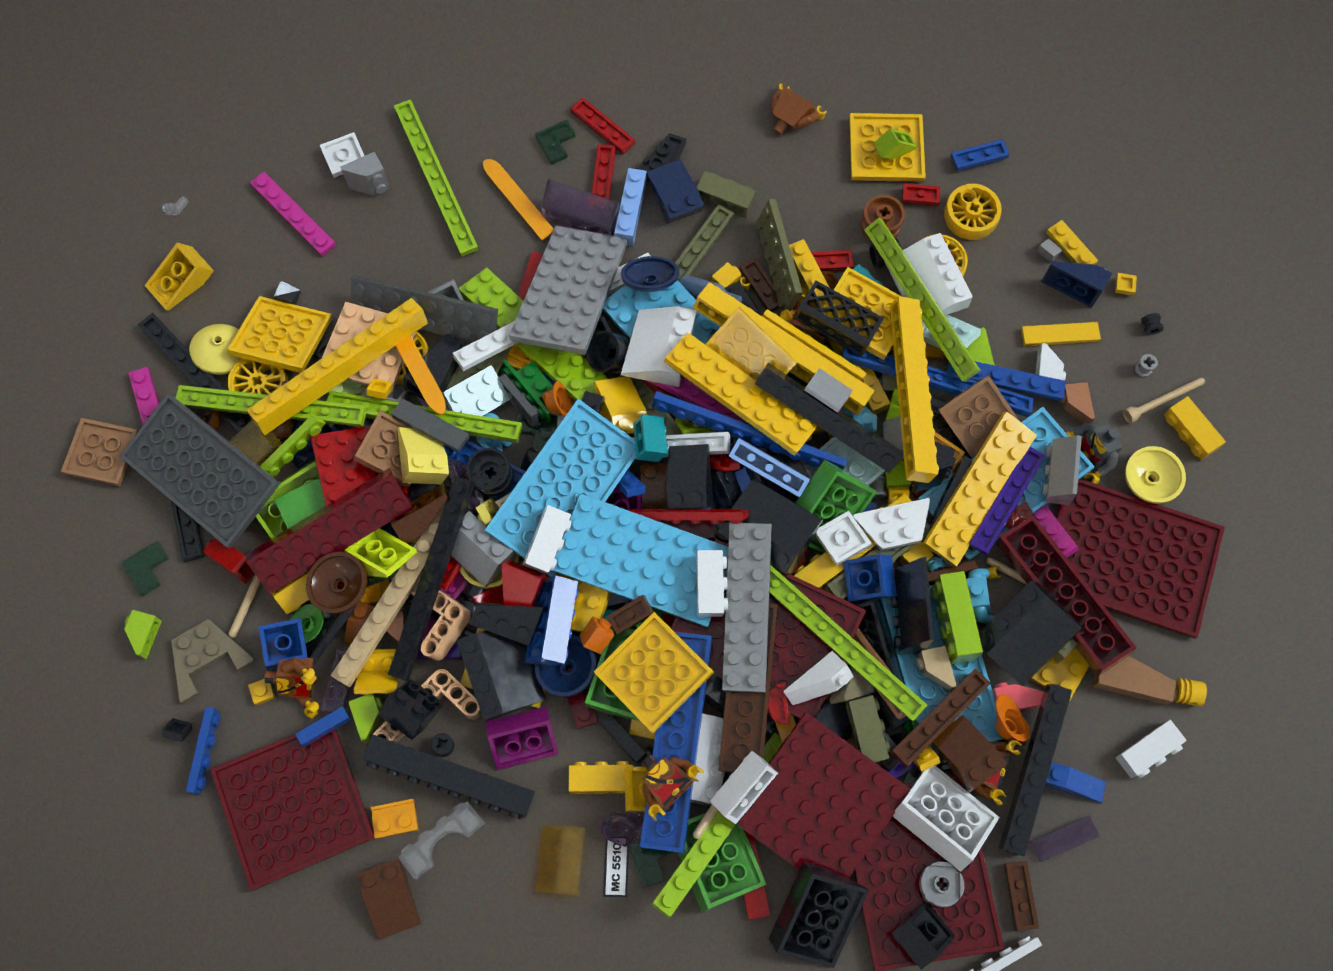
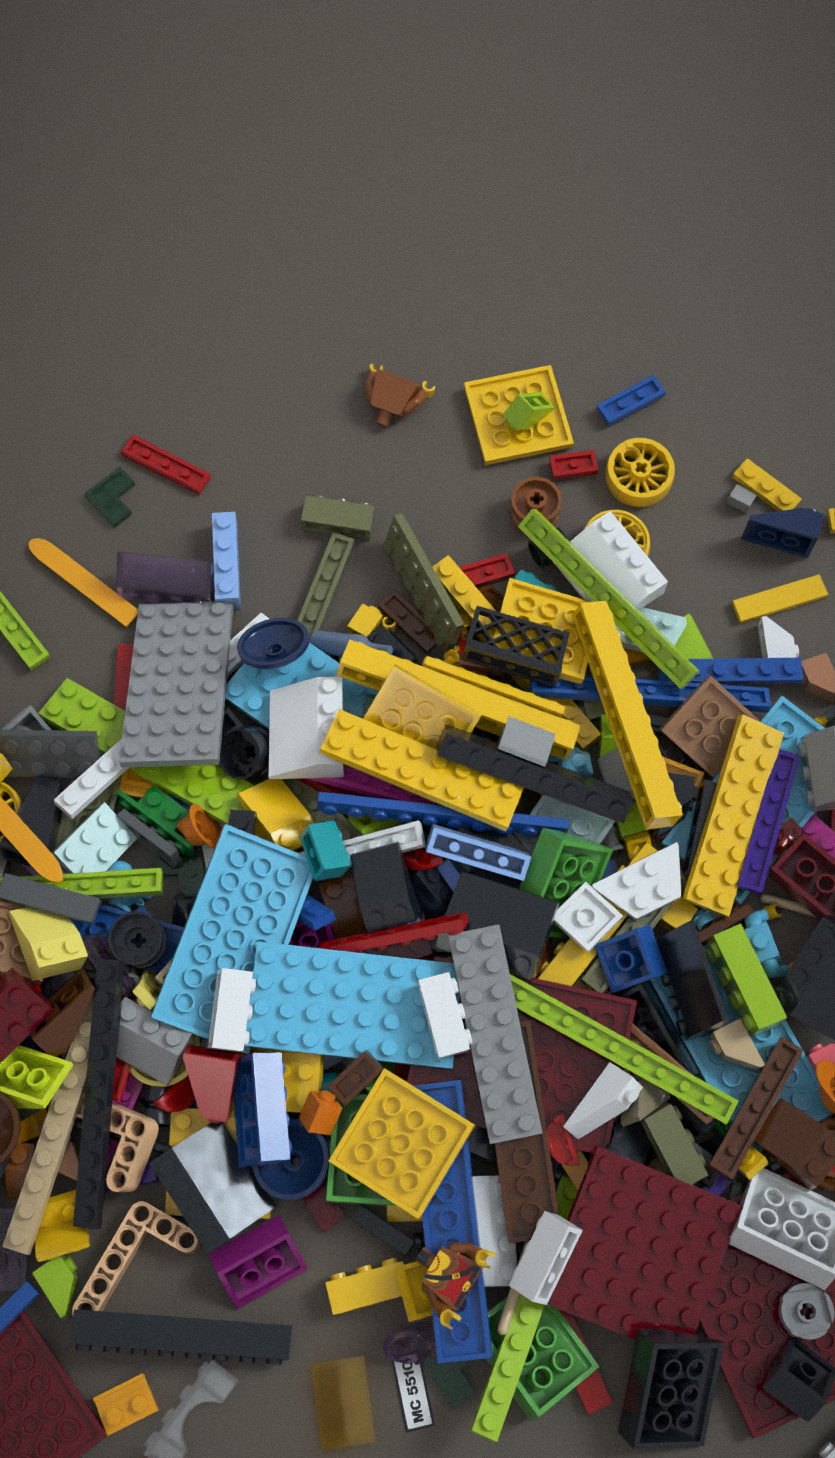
camera: 15 degrees left, 0 degrees up
(410, 709) = (113, 1263): black slope -> none
(445, 748) = (167, 1297): black wheel -> none
(509, 621) = (206, 1123): black wing -> none
(603, 170) = (181, 523): red tile -> none
(665, 153) = (252, 491): black wing -> none
(675, 191) = (275, 528): dark blue slope -> none

